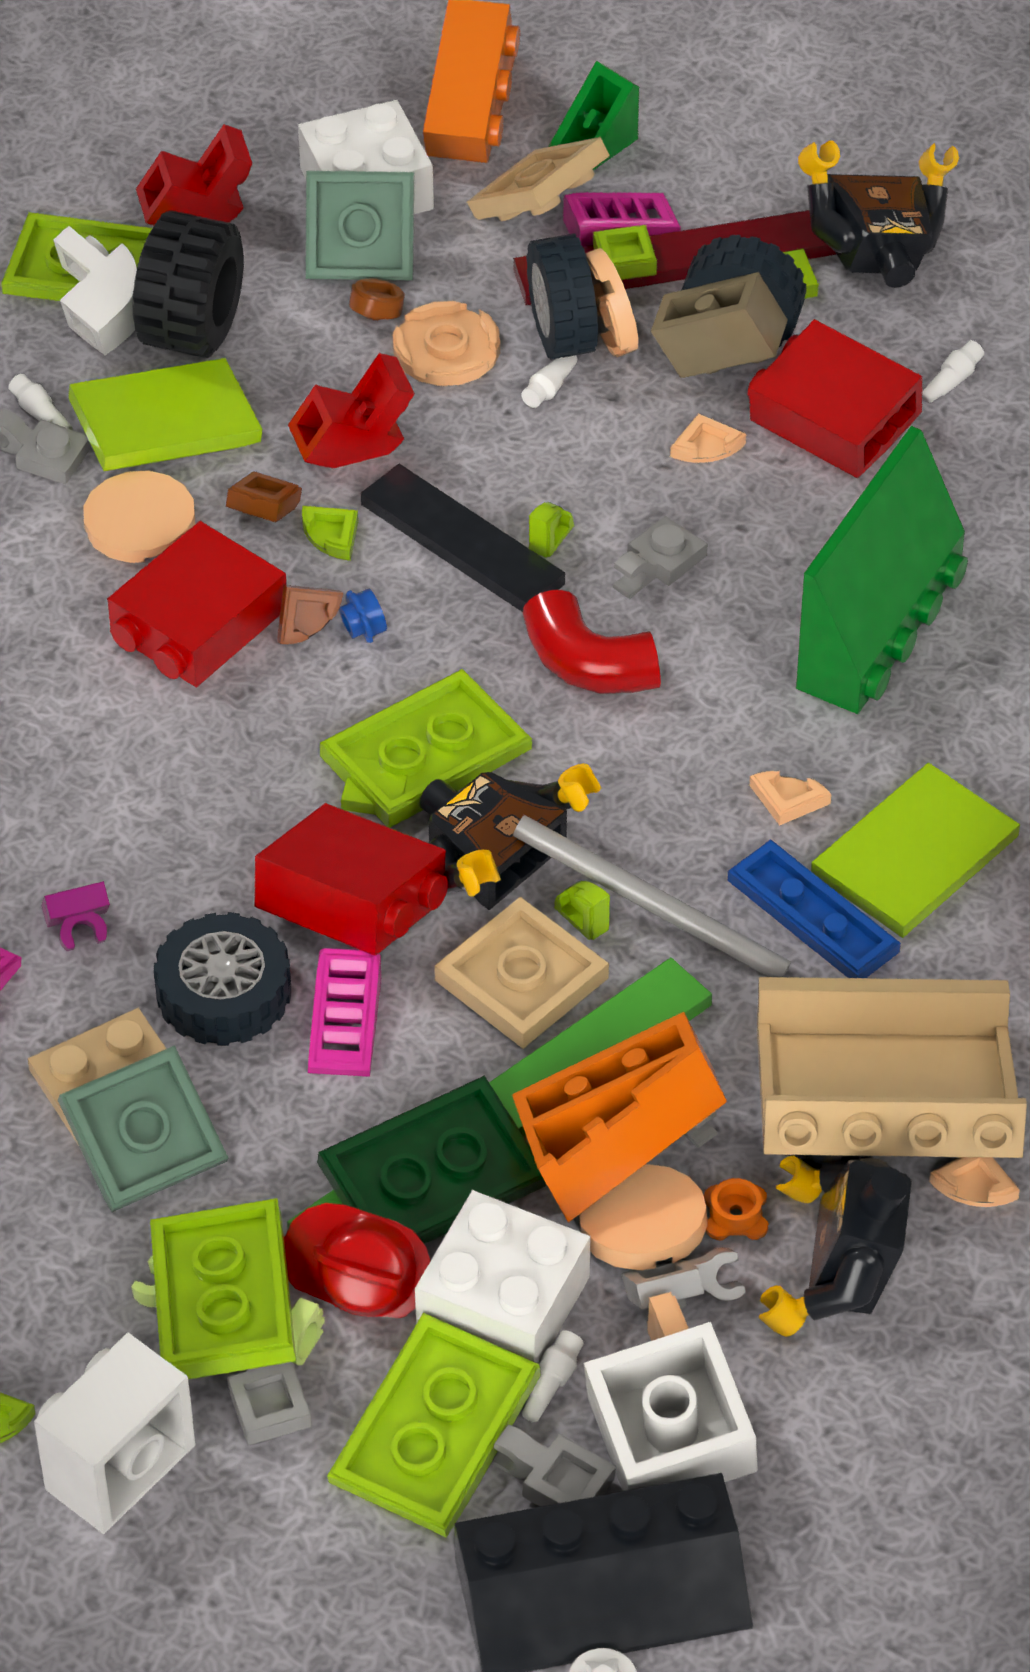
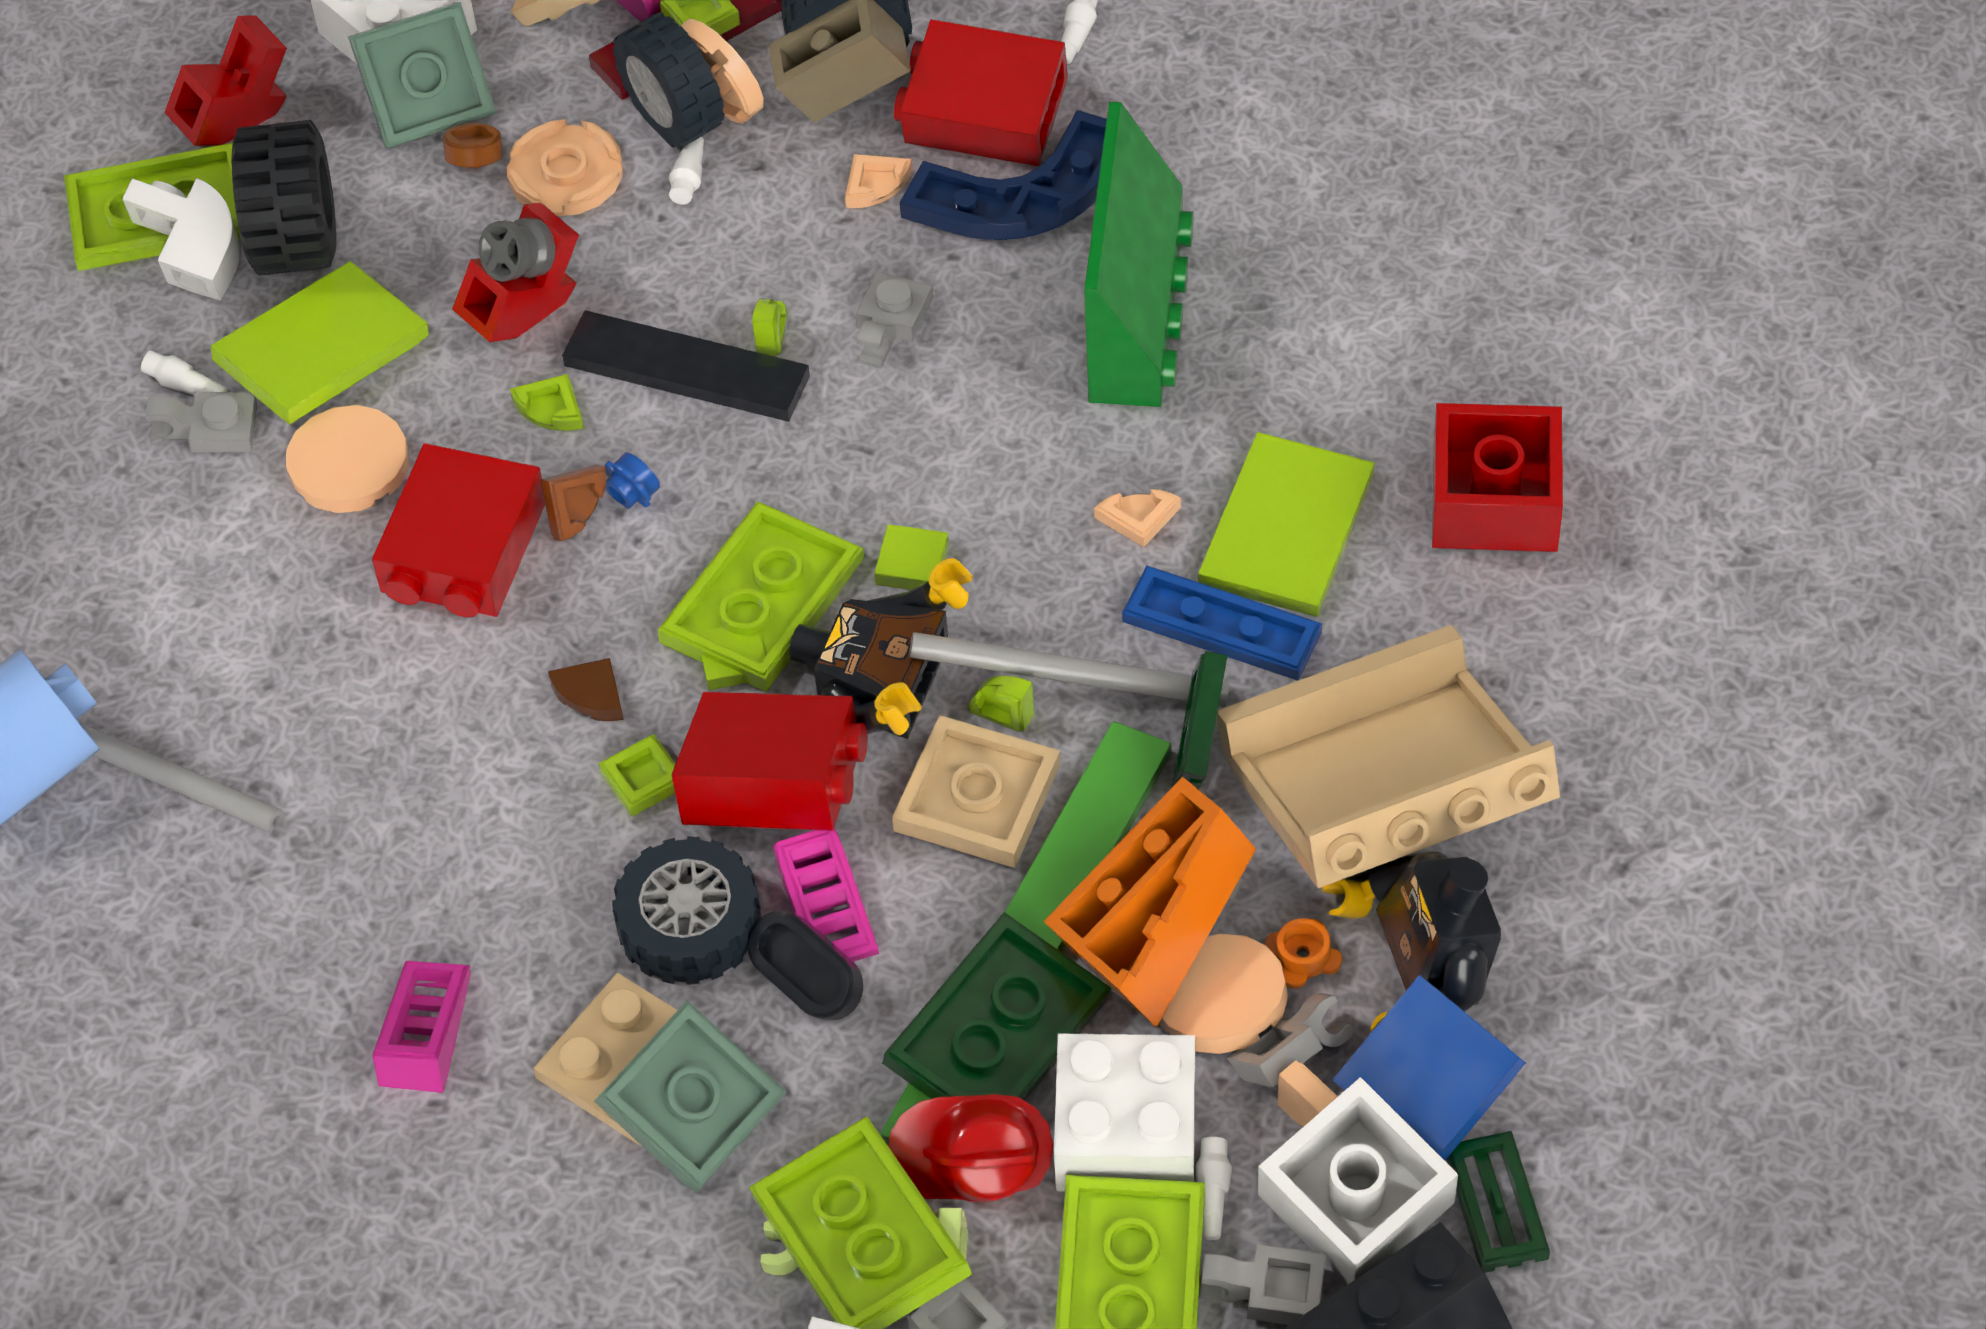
camera: 20 degrees left, 5 degrees up
(77, 907) = (503, 894): magenta tile -> none
(237, 854) = (640, 774): none -> lime tile
(240, 772) = (588, 689): none -> reddish brown tile
(264, 496) = (466, 393): dark orange tile -> none
(298, 1060) = (805, 965): none -> black tile
(356, 388) = (517, 249): none -> dark grey wheel
(566, 750) = (909, 556): none -> lime tile
(586, 657) = (871, 444): red cylinder -> none
(740, 982) = (1200, 718): none -> dark green tile
(787, 1531) = (1510, 1252): none -> dark green tile
(788, 1346) = (1433, 1066): none -> blue tile
(789, 494) = (1014, 205): none -> dark blue plate
(976, 1181) = (1511, 837): light nougat tile -> none

